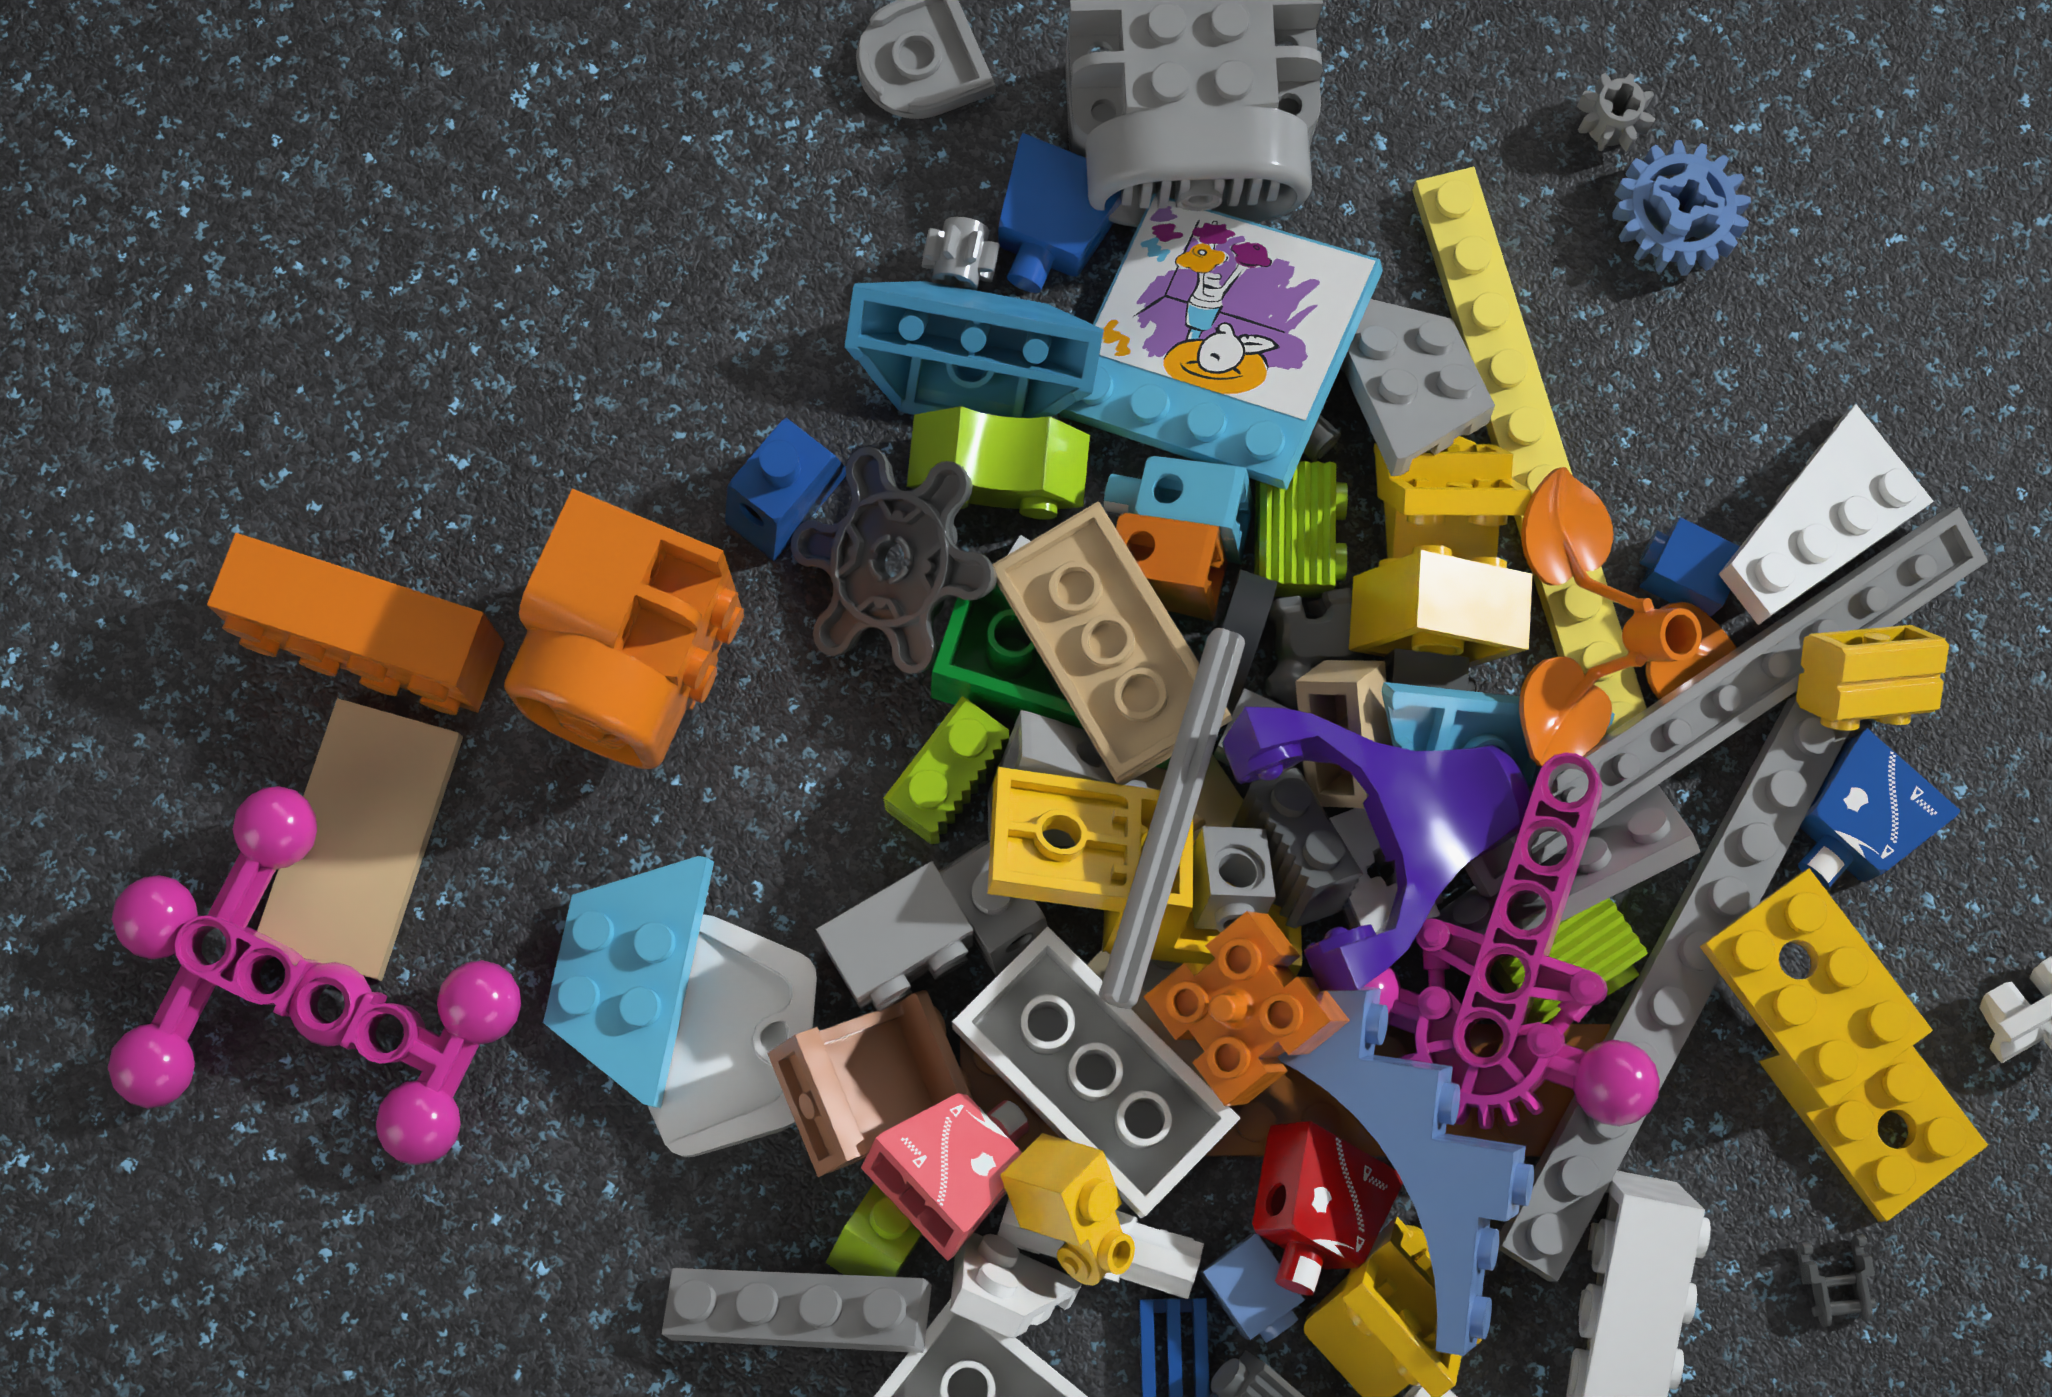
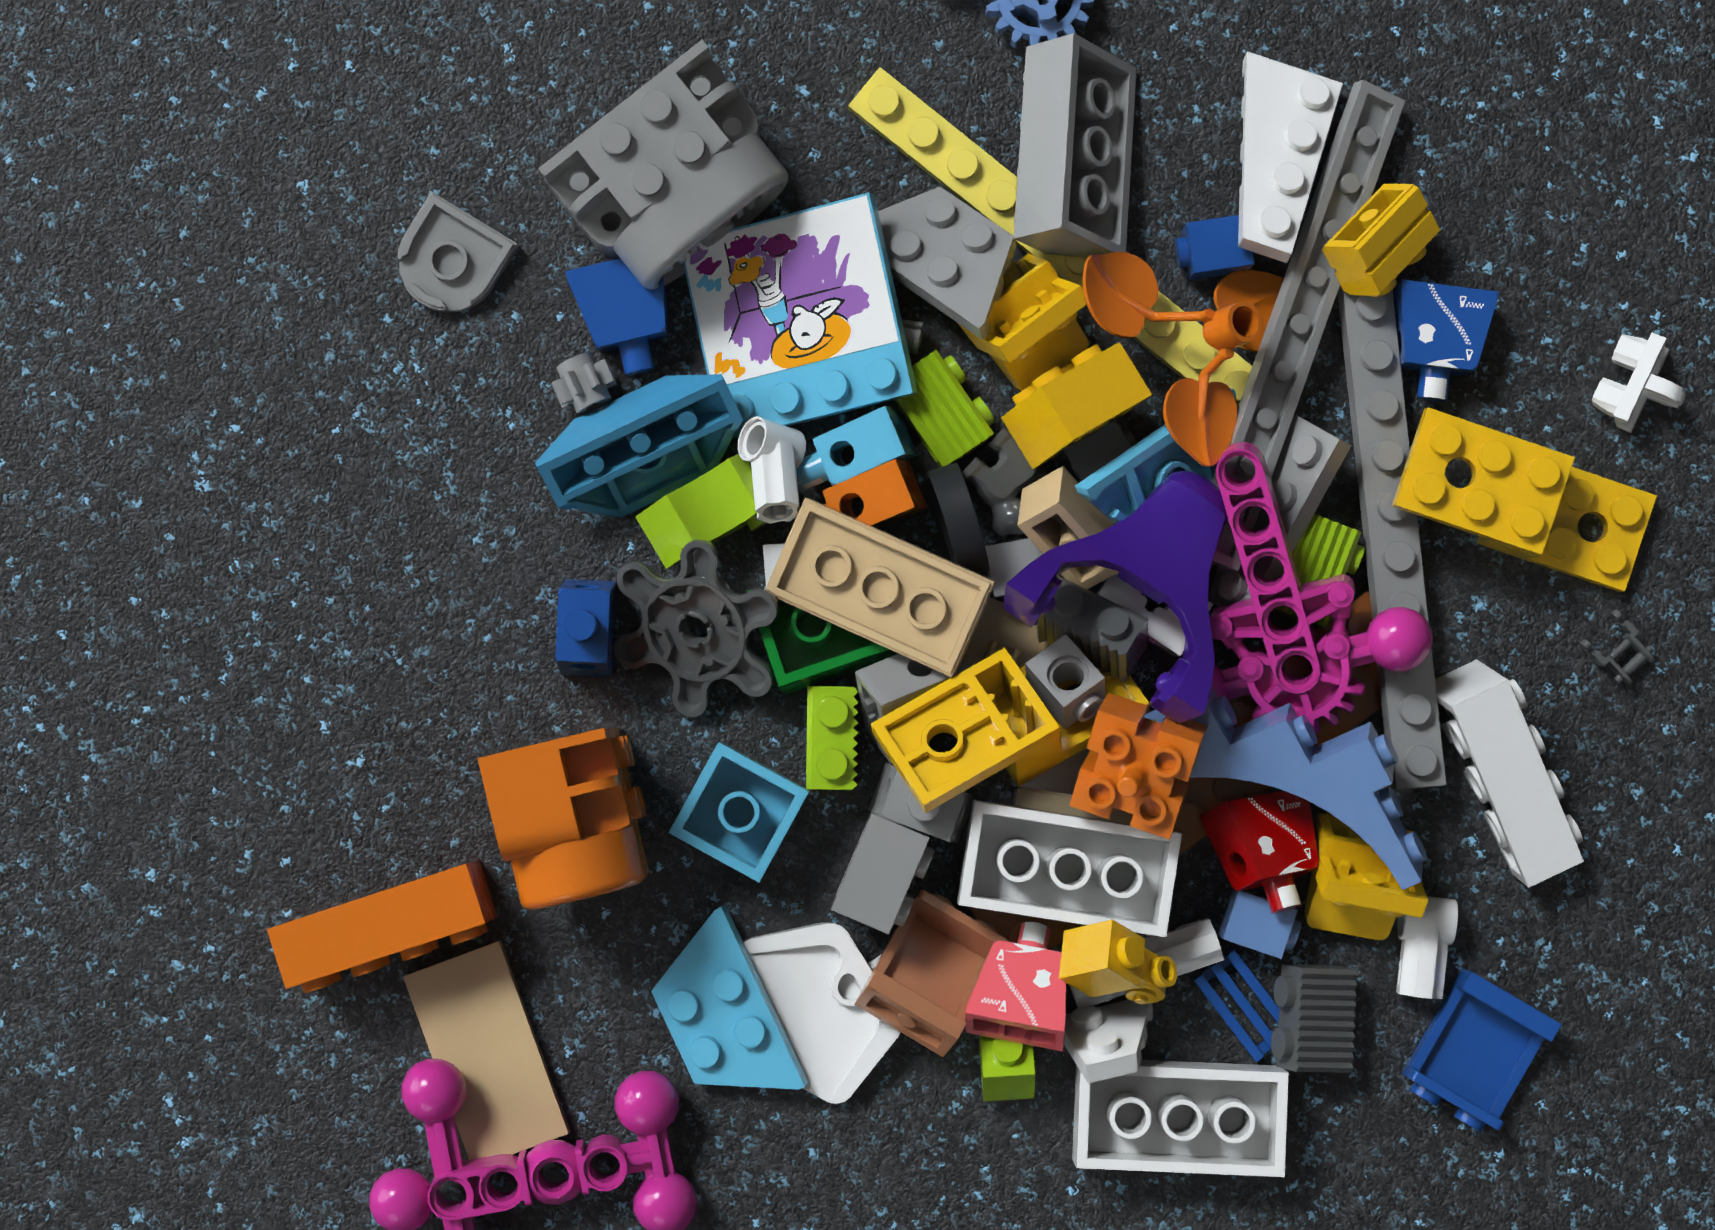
camera: 30 degrees left, 10 degrees up
(797, 1309) = (988, 1145): light grey plate -> none
(799, 774) = (739, 811): none -> medium azure brick
(1094, 452) = (774, 457): none -> white piece
(1172, 819) = (1006, 679): light grey axle -> none
(1616, 368) = (1074, 149): none -> light grey slope

